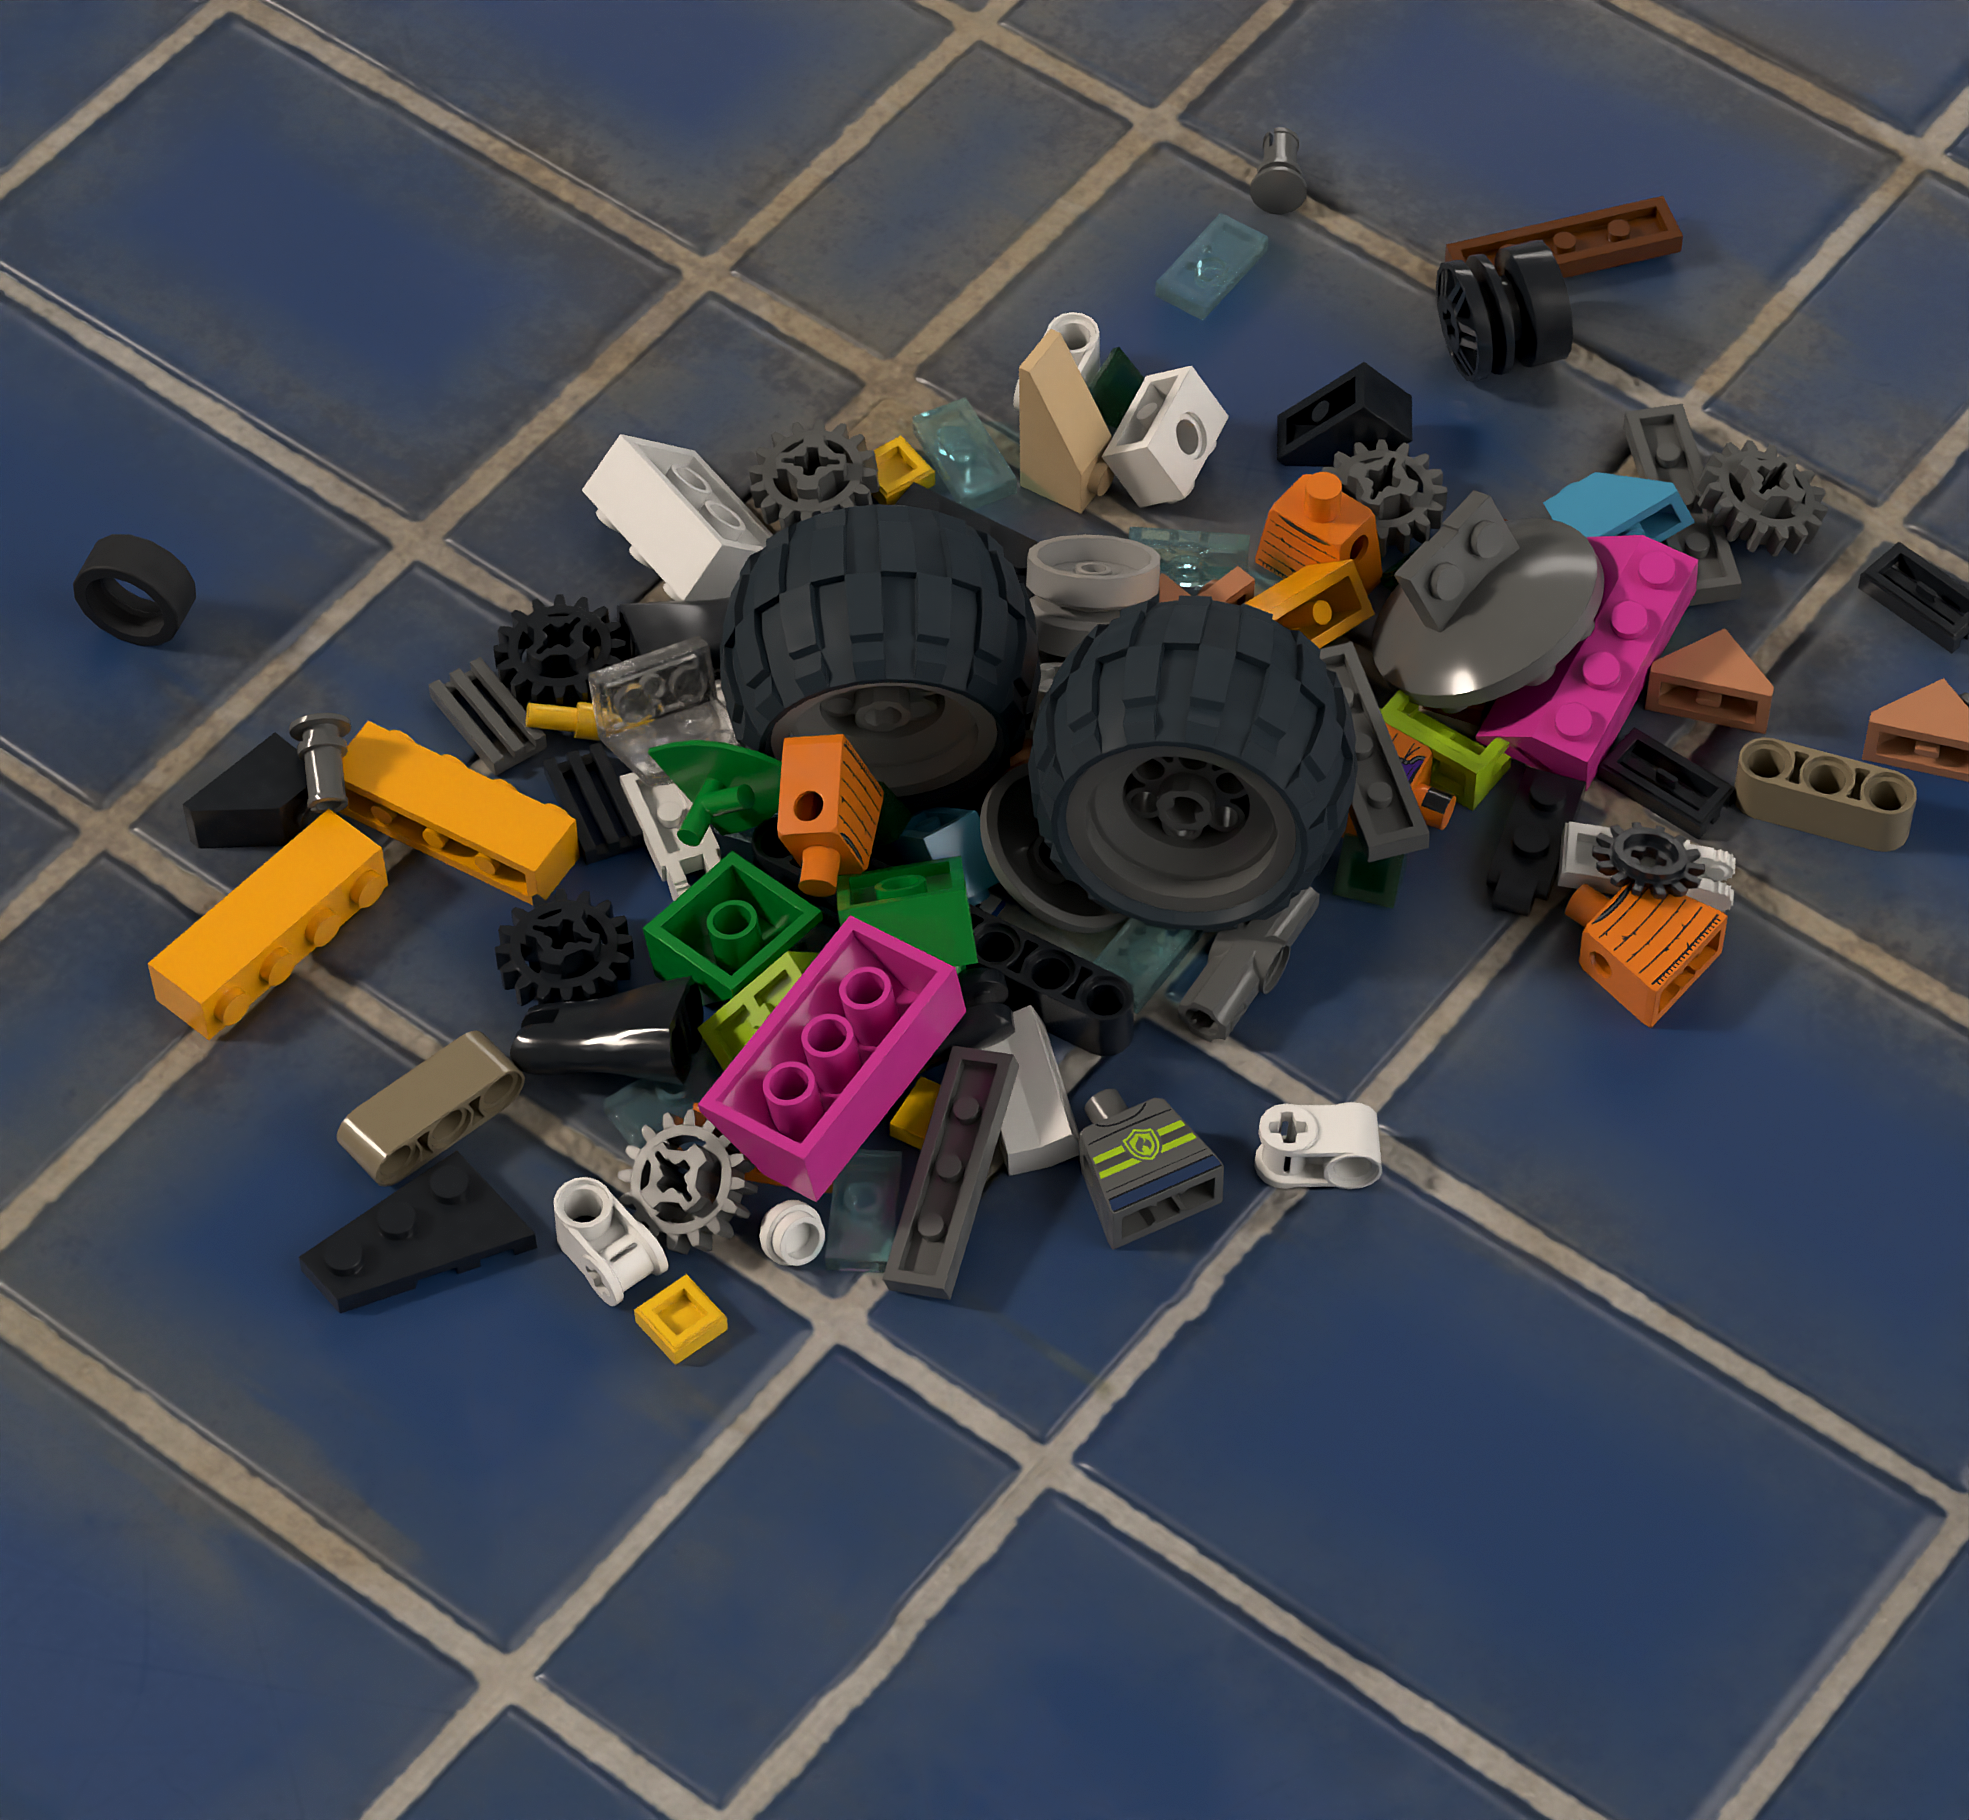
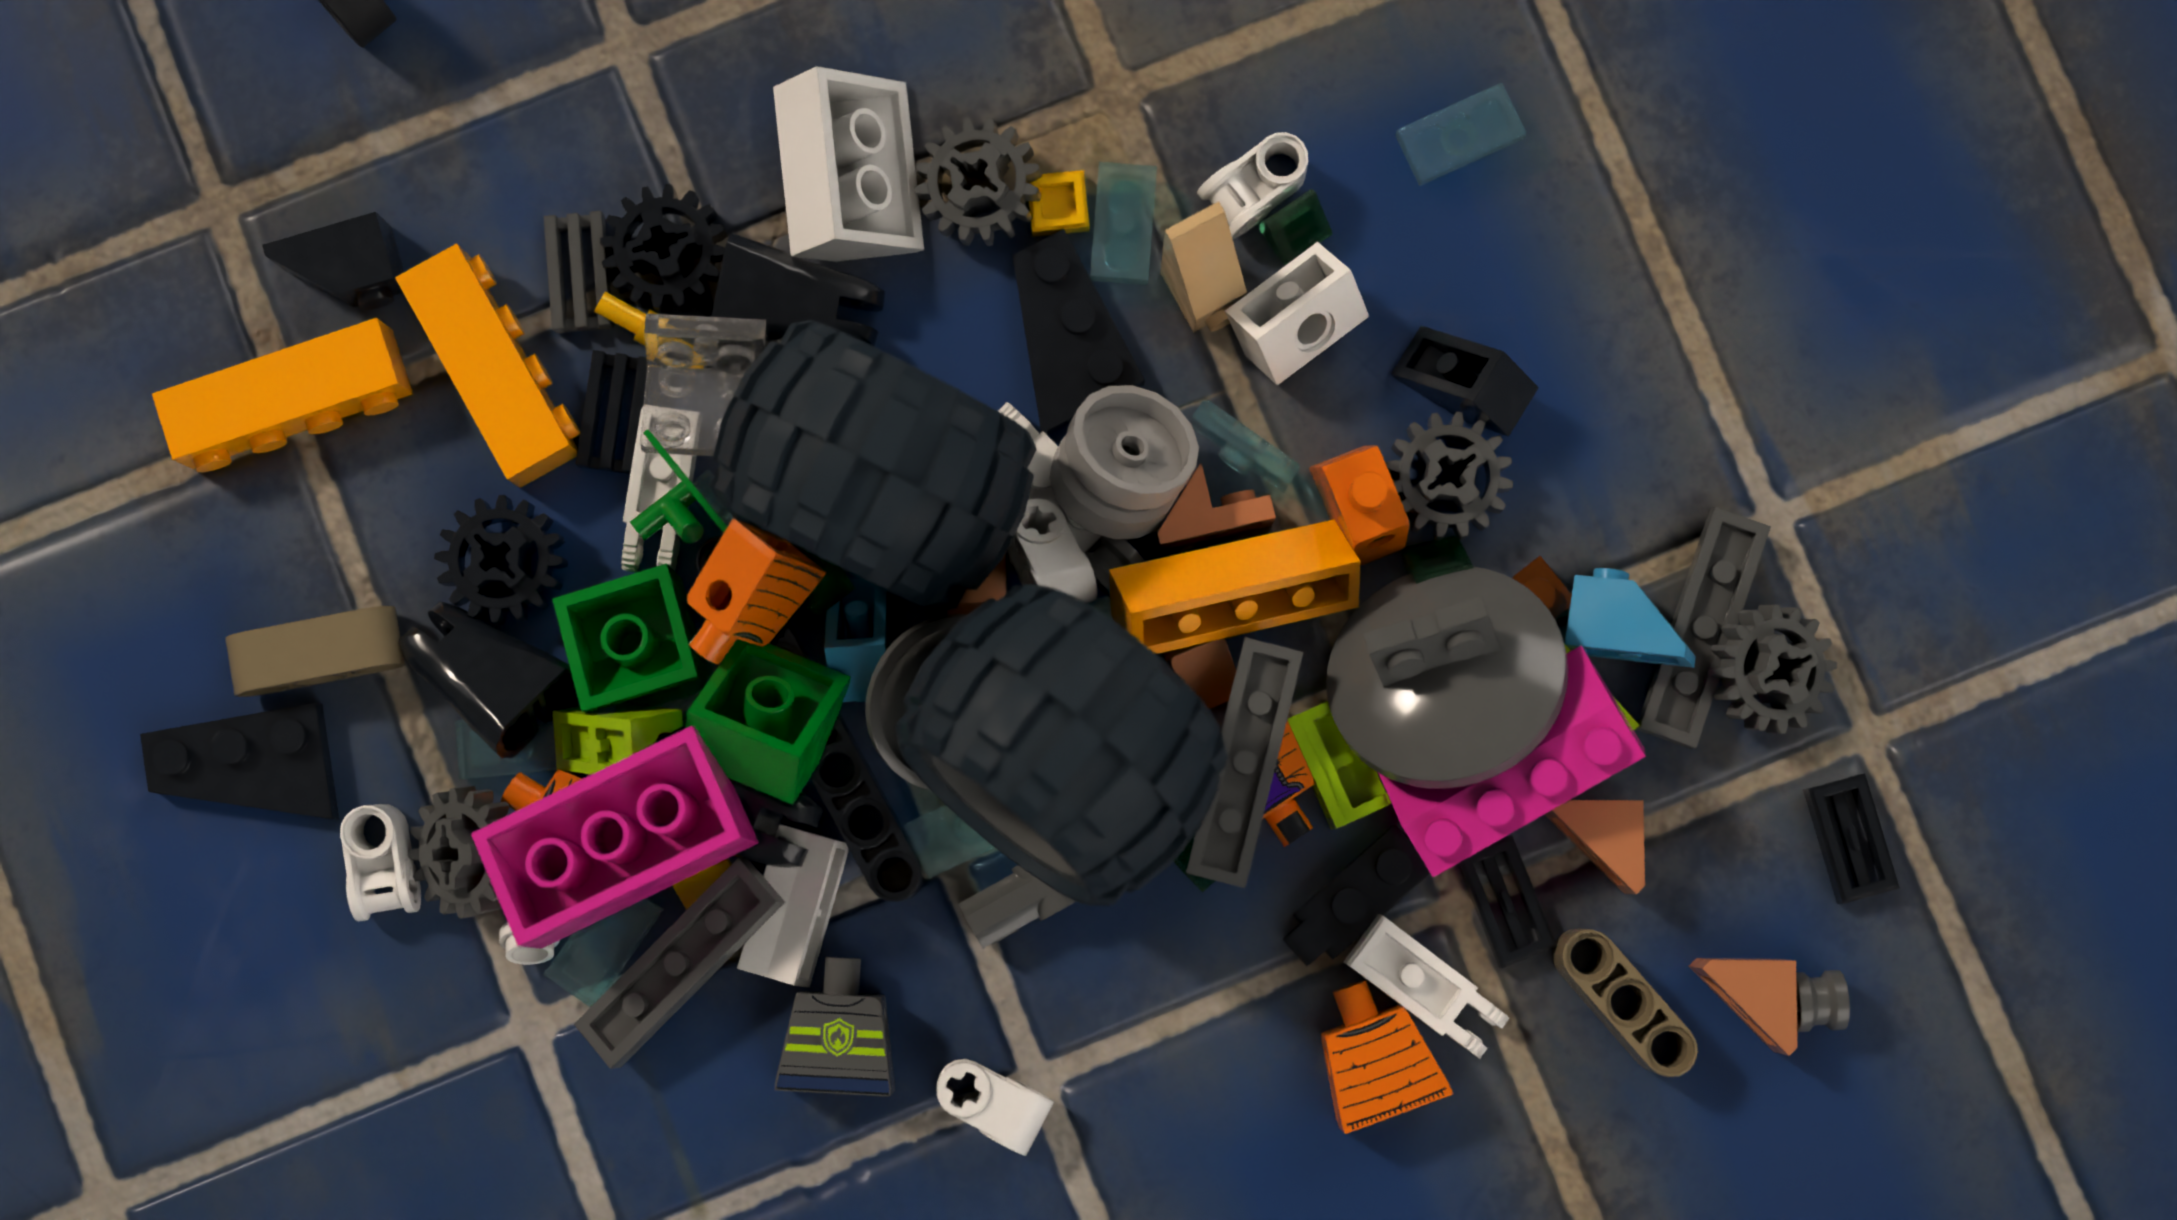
camera: 30 degrees right, 30 degrees up
(323, 753) = (388, 273): dark grey pin -> none
(681, 1319) = (406, 959): yellow tile -> none
(1279, 179) = (1580, 67): dark grey pin -> none
(1504, 310) = (1685, 351): black wheel -> none
(1590, 239) = (1782, 289): reddish brown plate -> none
(1673, 864) = (1444, 1004): black gear -> none

